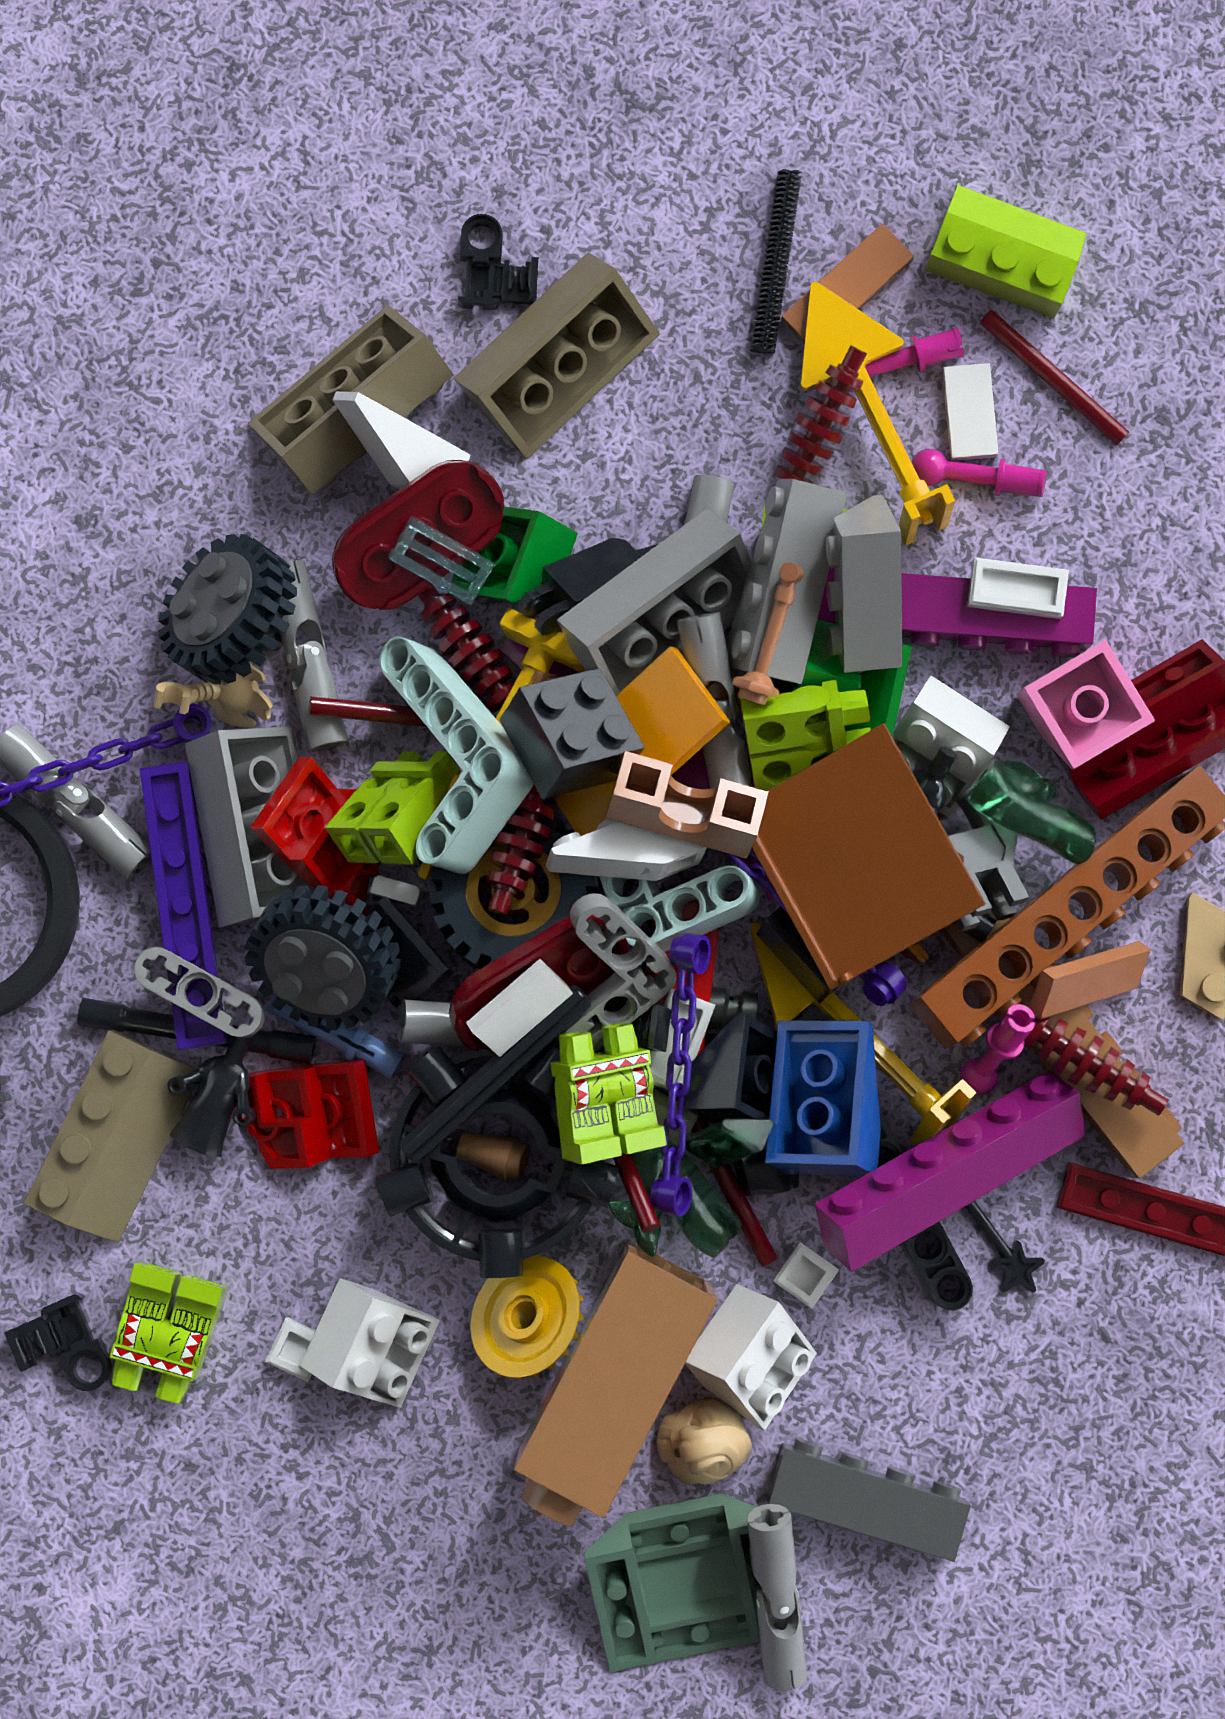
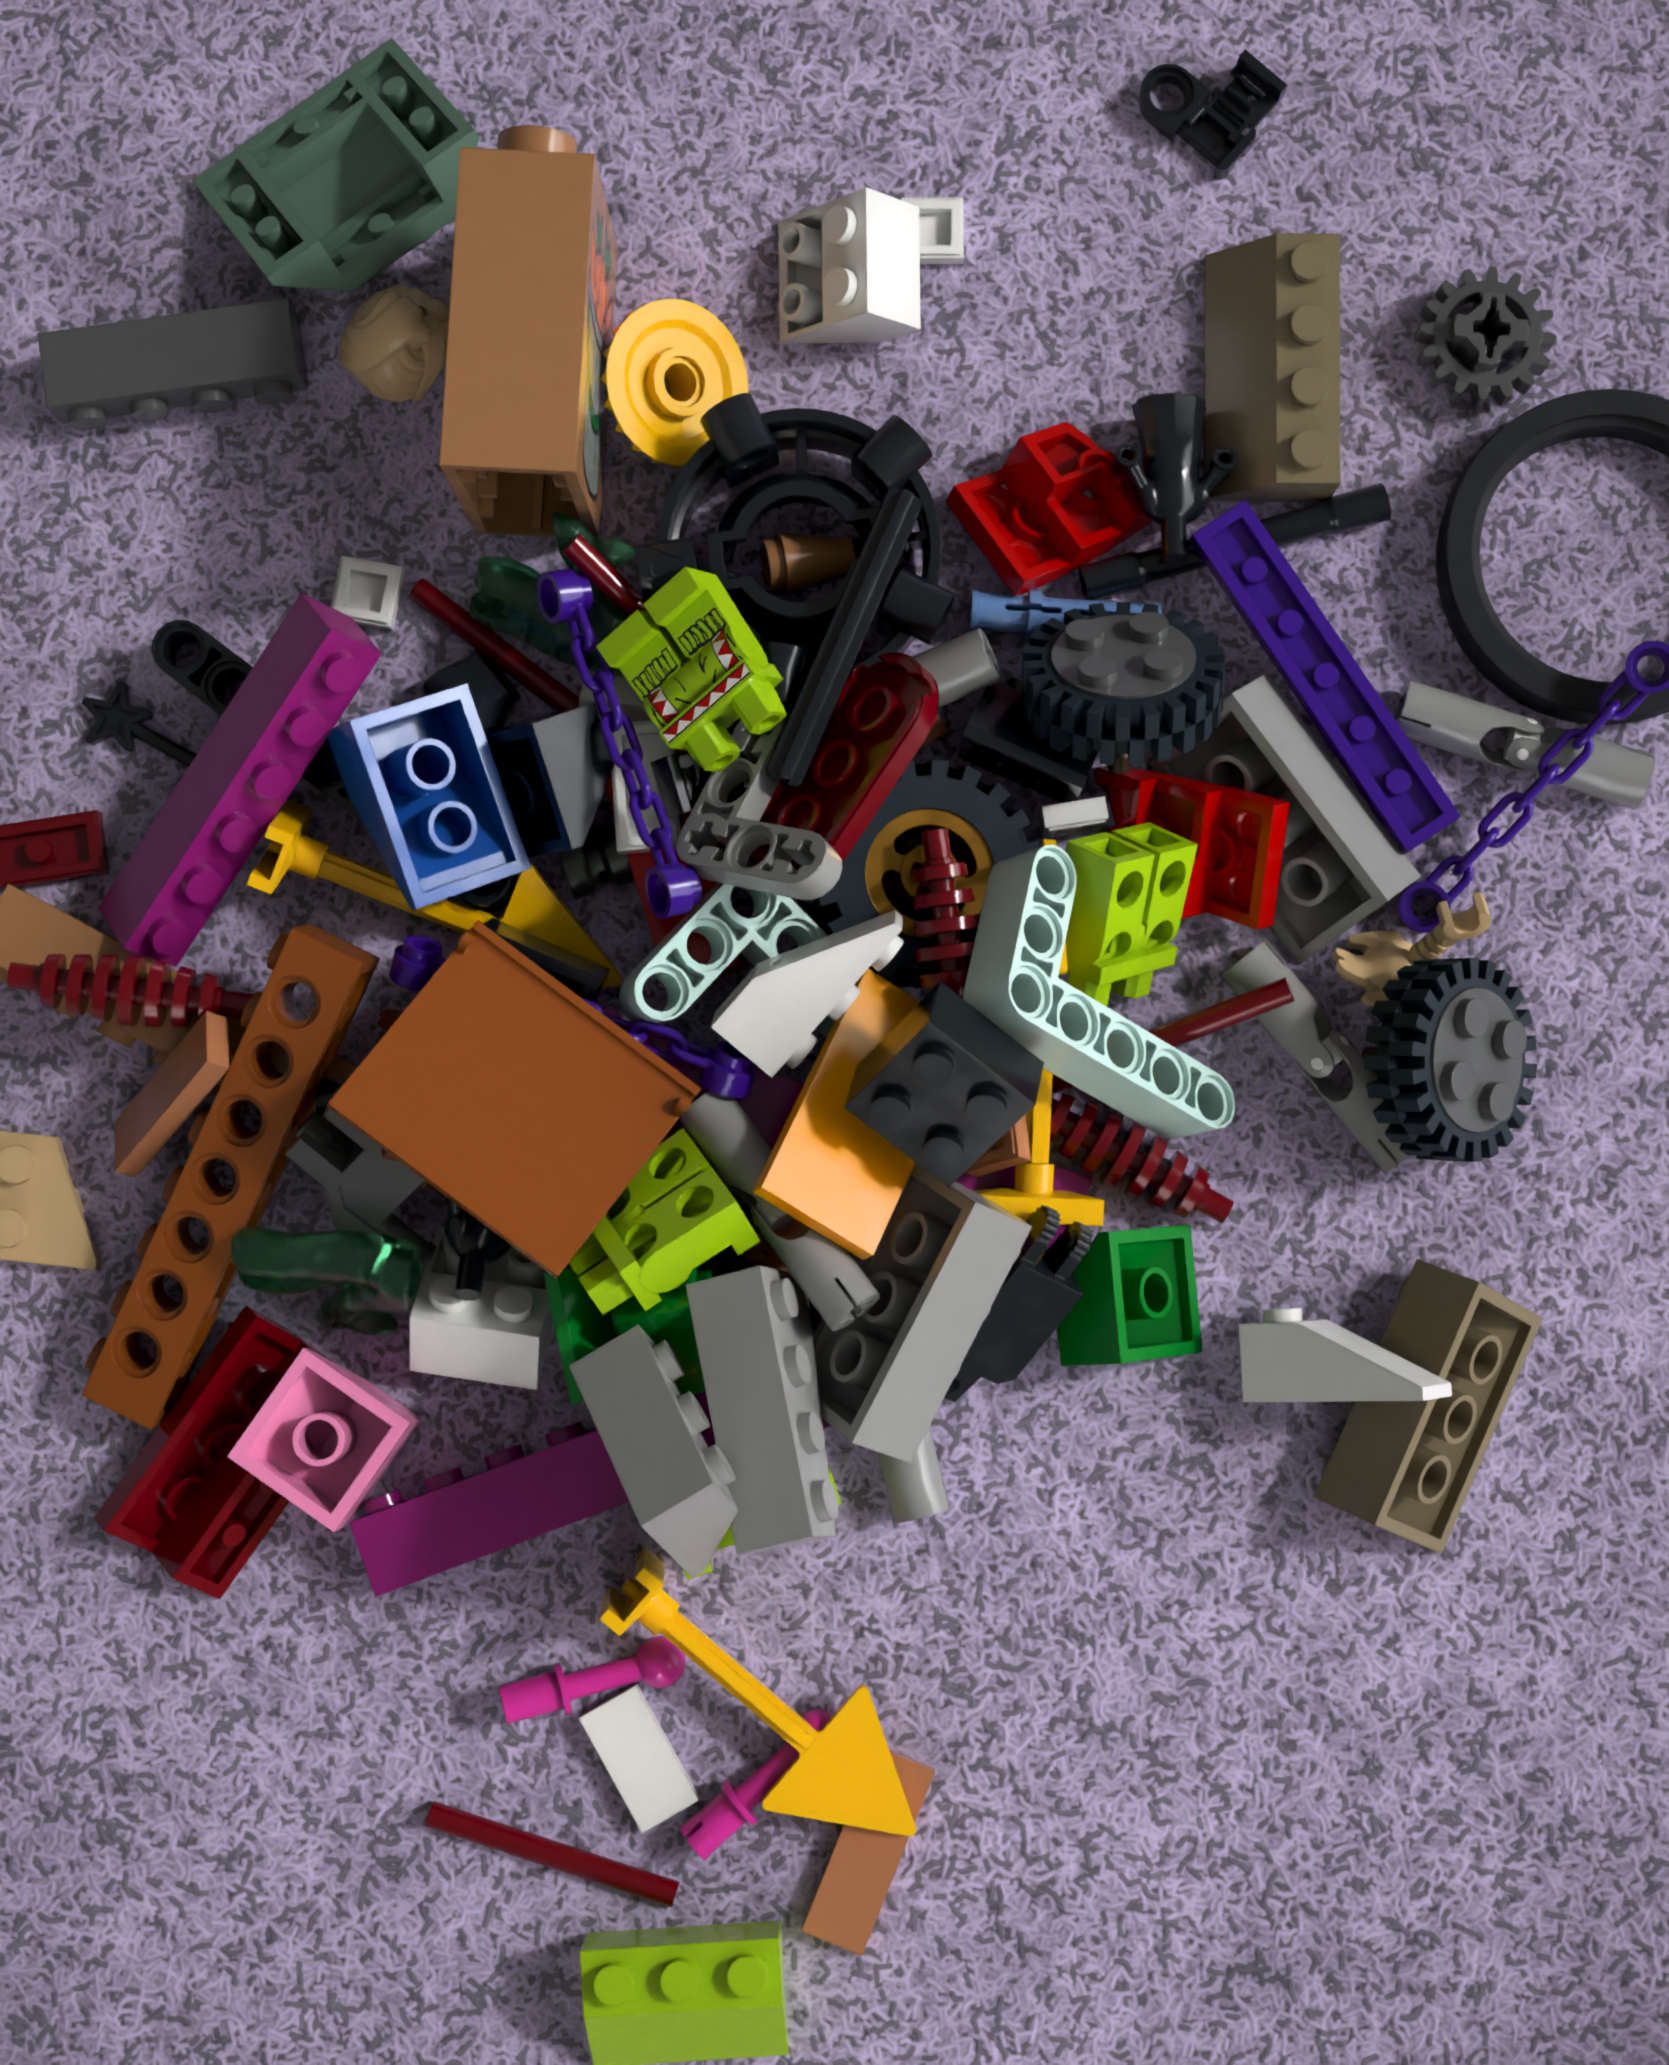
camera: 160 degrees right, 0 degrees up
(162, 986) = (1298, 596): light grey beam -> none
(163, 1344) = (1096, 157): lime hips -> none
(406, 540) = (1269, 1248): clear light blue tile -> none
(449, 497) = (1258, 1265): dark red tile -> none
(496, 277) = (1323, 1650): black piece -> none
(519, 1008) = (851, 723): white tile -> none
(558, 354) = (1195, 1587): dark tan slope -> none
(714, 818) = (798, 1048): nougat arch -> none
(729, 1140) = (521, 694): clear green slope -> none
(751, 1355) = (382, 463): white slope -> none
(756, 684) = (740, 1251): nougat piece -> none
(775, 261) = (976, 1842): black axle -> none
(776, 1573) = (222, 188): light grey piece -> none
(819, 427) = (820, 1645): dark red piece -> none
(1004, 1041) = (241, 964): dark pink pin -> none
(1017, 588) = (474, 1548): white tile -> none

